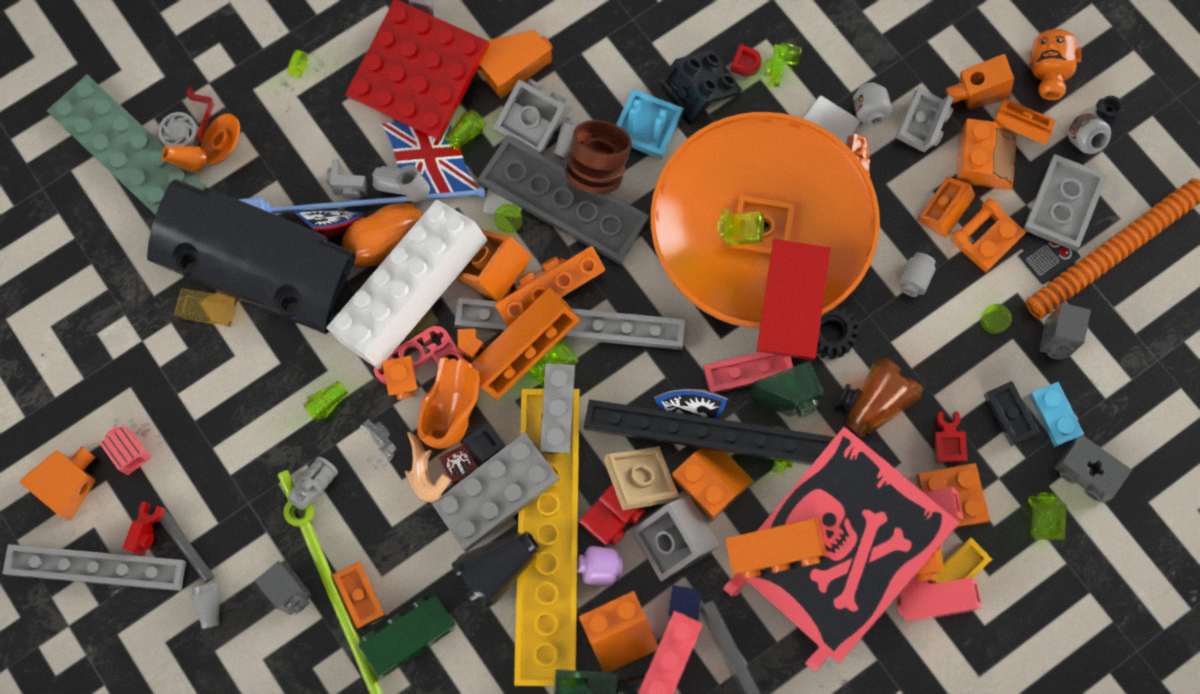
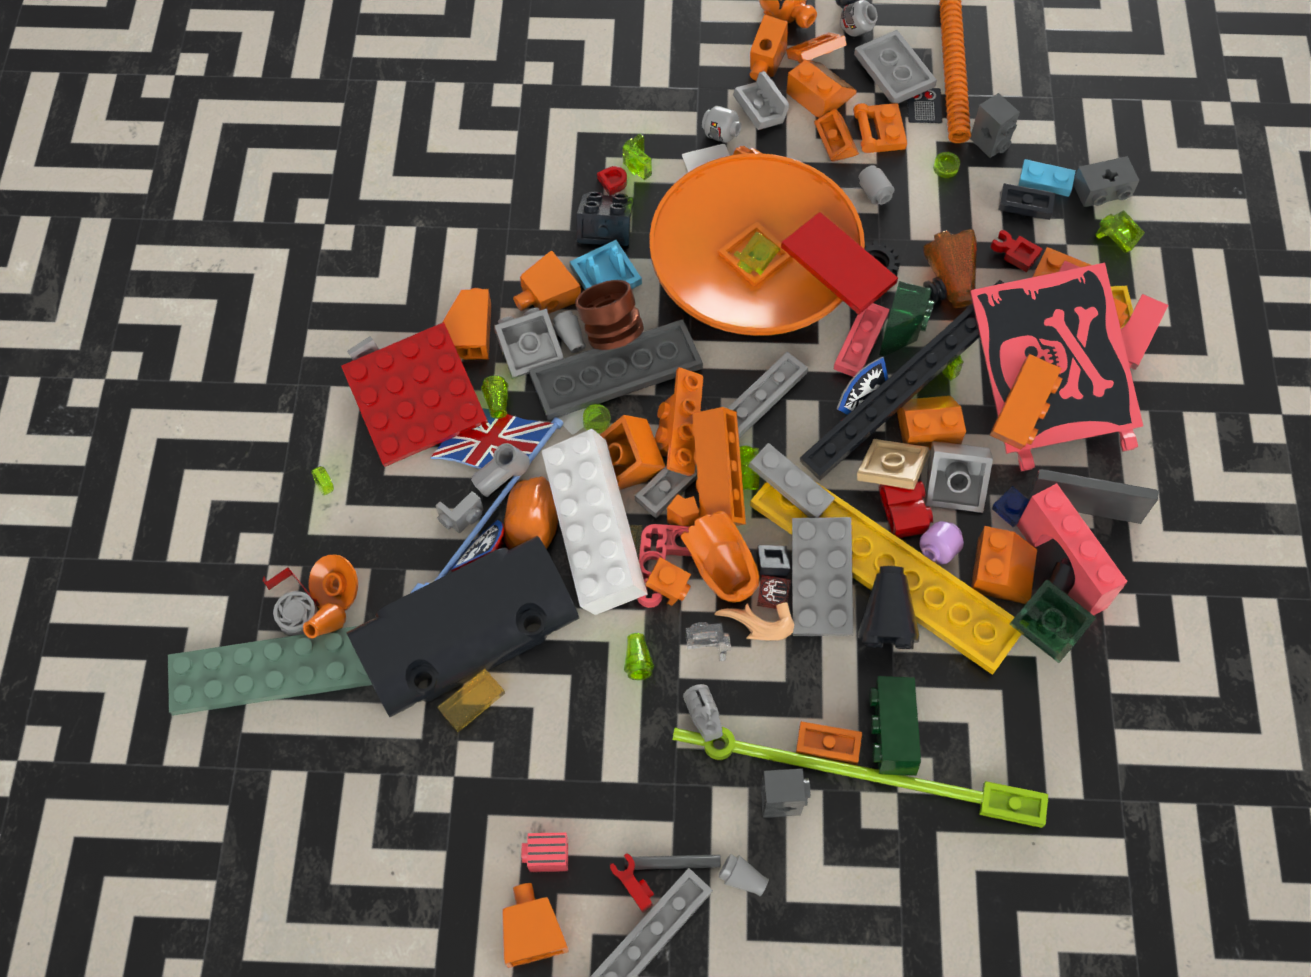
camera: 55 degrees left, 10 degrees down
(596, 89) = (547, 286): none -> orange torso

